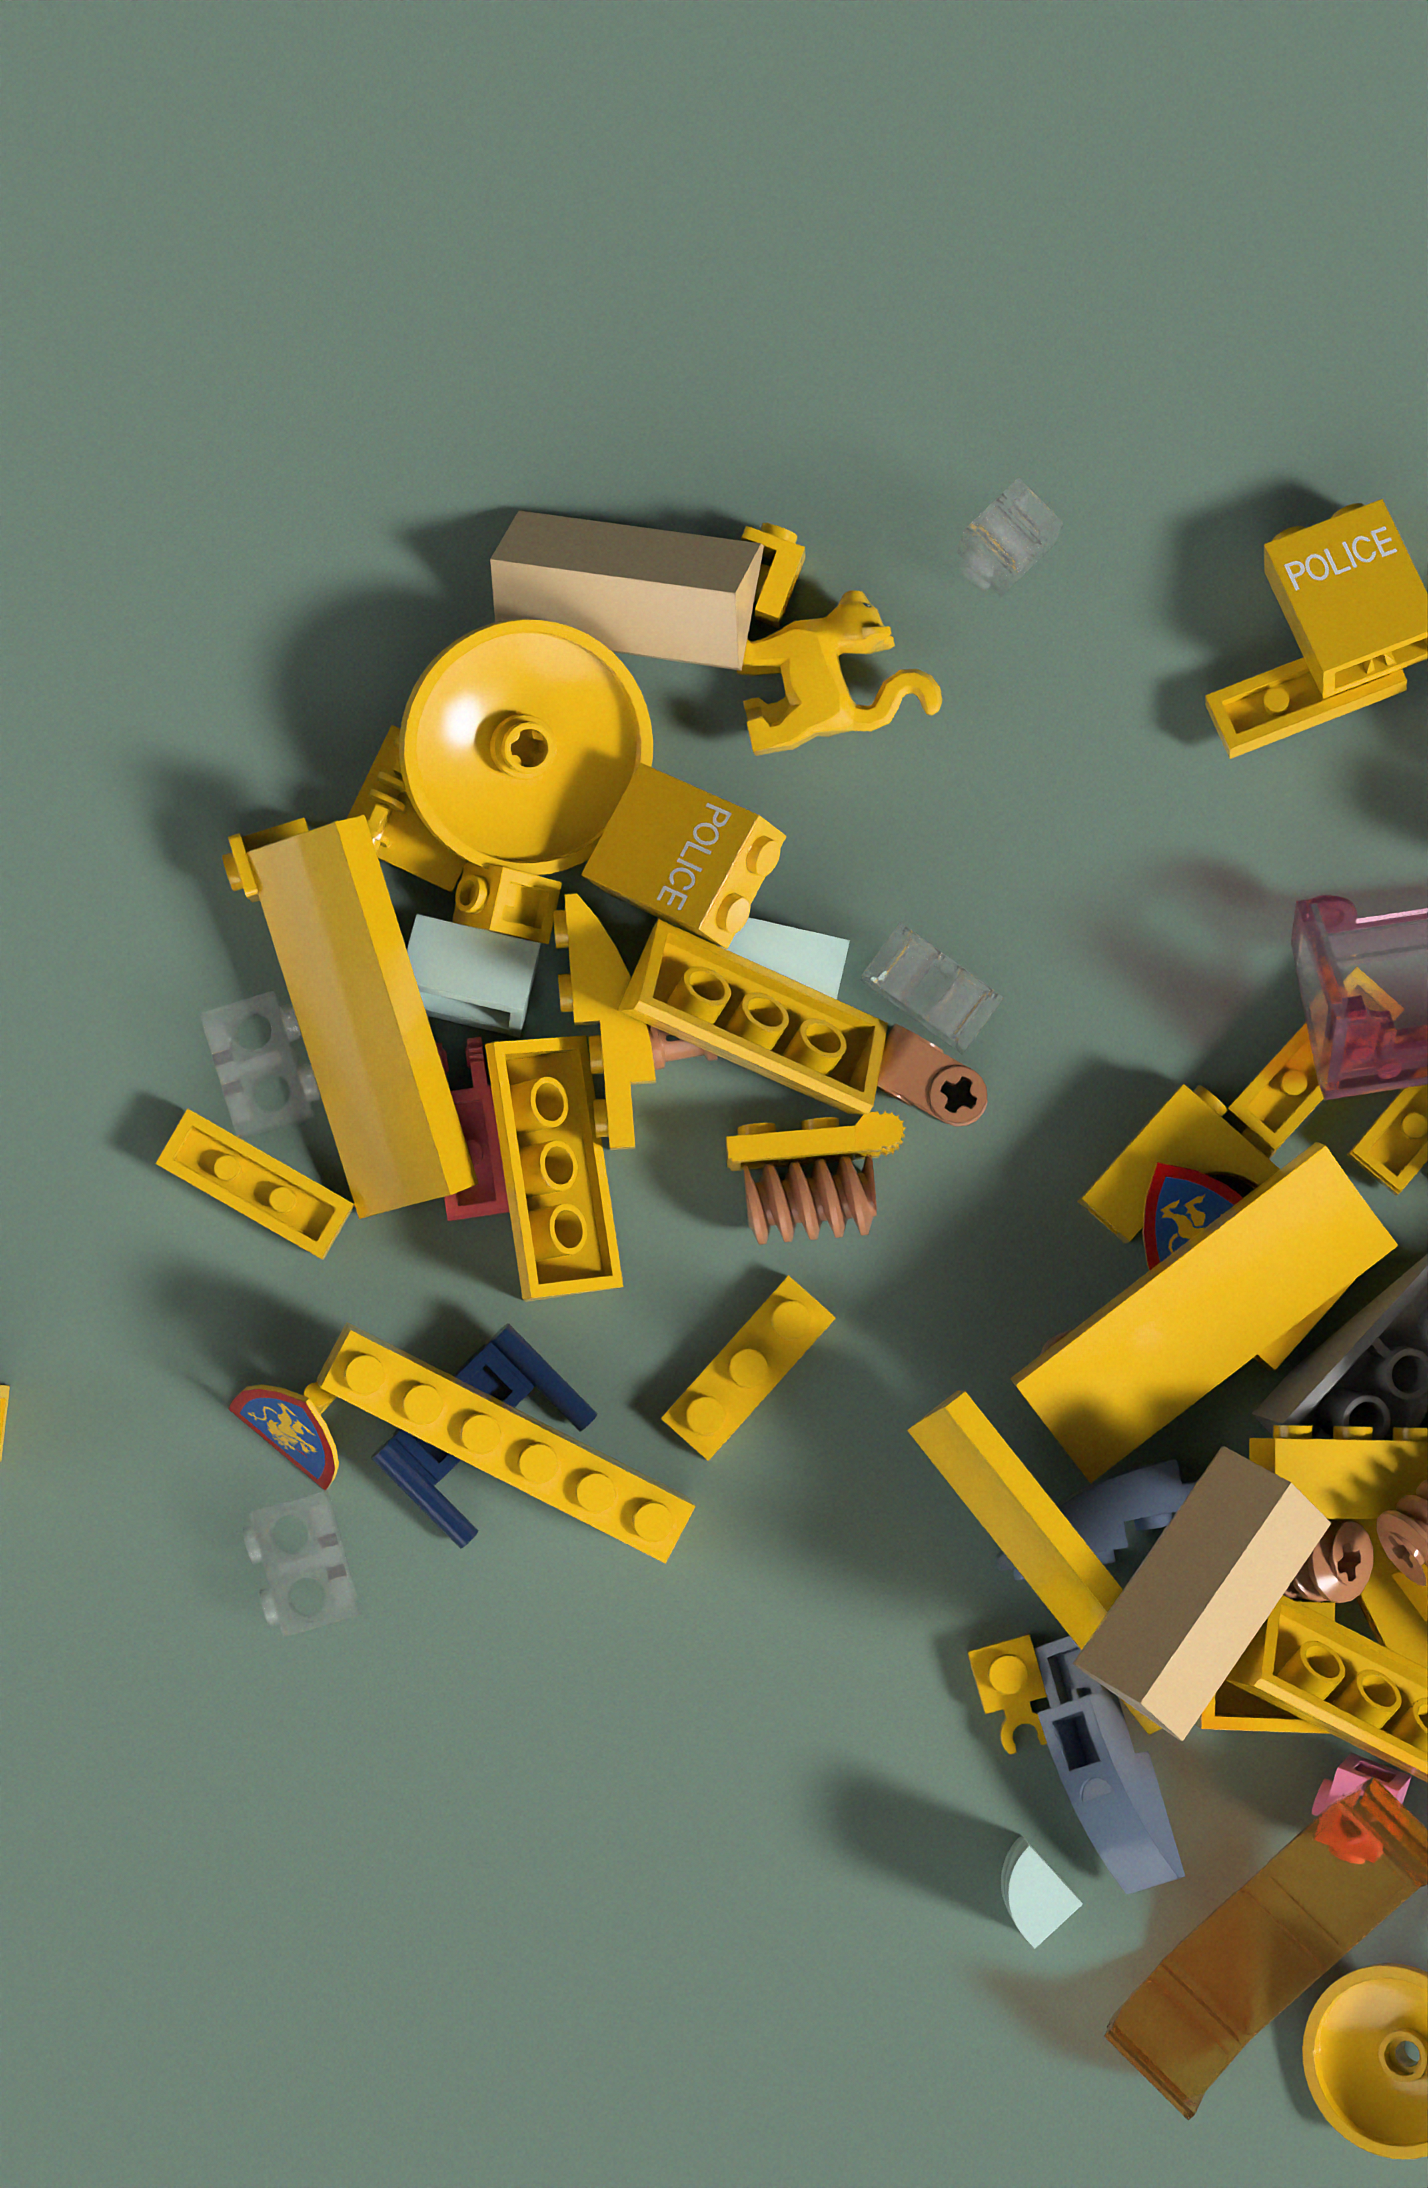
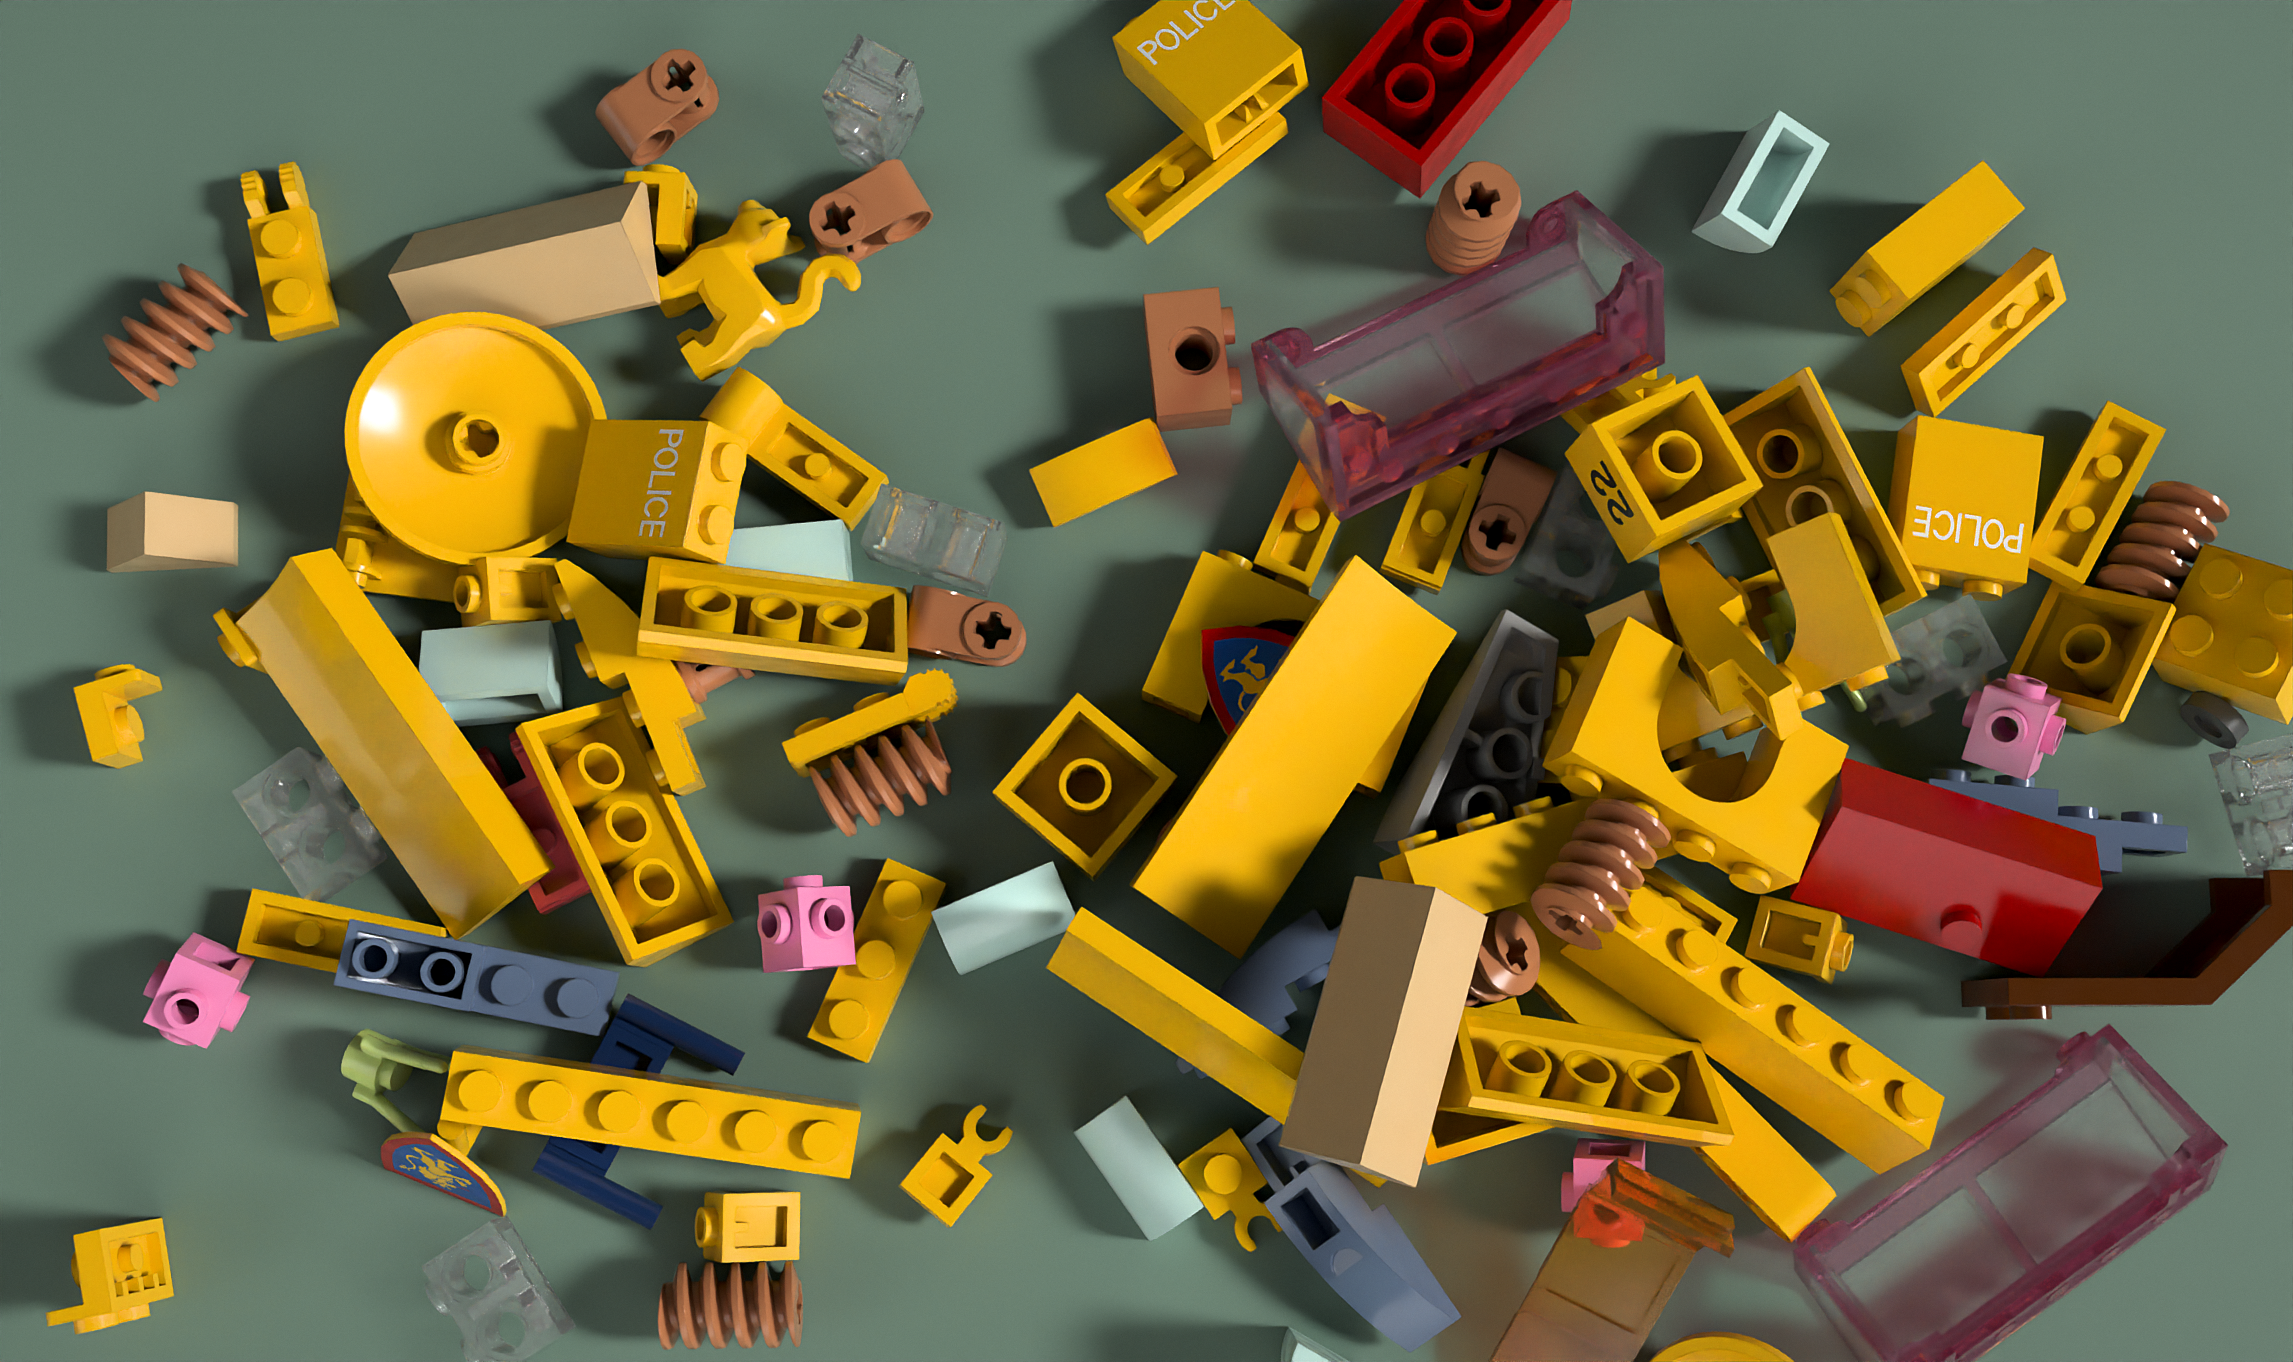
camera: 20 degrees left, 5 degrees down
(98, 908) = (108, 720): none -> yellow bracket
(113, 1190) = (198, 992): none -> bright pink brick
(199, 736) = (171, 533): none -> tan slope
(262, 538) = (171, 331): none -> nougat piece
(264, 1314) = (386, 1064): none -> yellowish green plant
(378, 1265) = (476, 978): none -> sand blue slope
(391, 498) = (289, 257): none -> yellow hinge
(518, 1642) = (731, 1306): none -> nougat piece
(553, 1575) = (749, 1226): none -> yellow bracket
(694, 1316) = (806, 926): none -> bright pink brick
(755, 1590) = (950, 1173): none -> yellow plate
(782, 465) = (652, 109): none -> nougat piece
(824, 851) = (795, 449): none -> yellow plate
(883, 1370) = (1004, 918): none -> light aqua brick
(930, 1643) = (1138, 1168): none -> light aqua brick
(979, 636) = (873, 211): none -> nougat piece
(998, 1273) = (1085, 786): none -> yellow brick
(1113, 971) = (1103, 471): none -> yellow slope
(1208, 918) = (1184, 322): none -> nougat brick

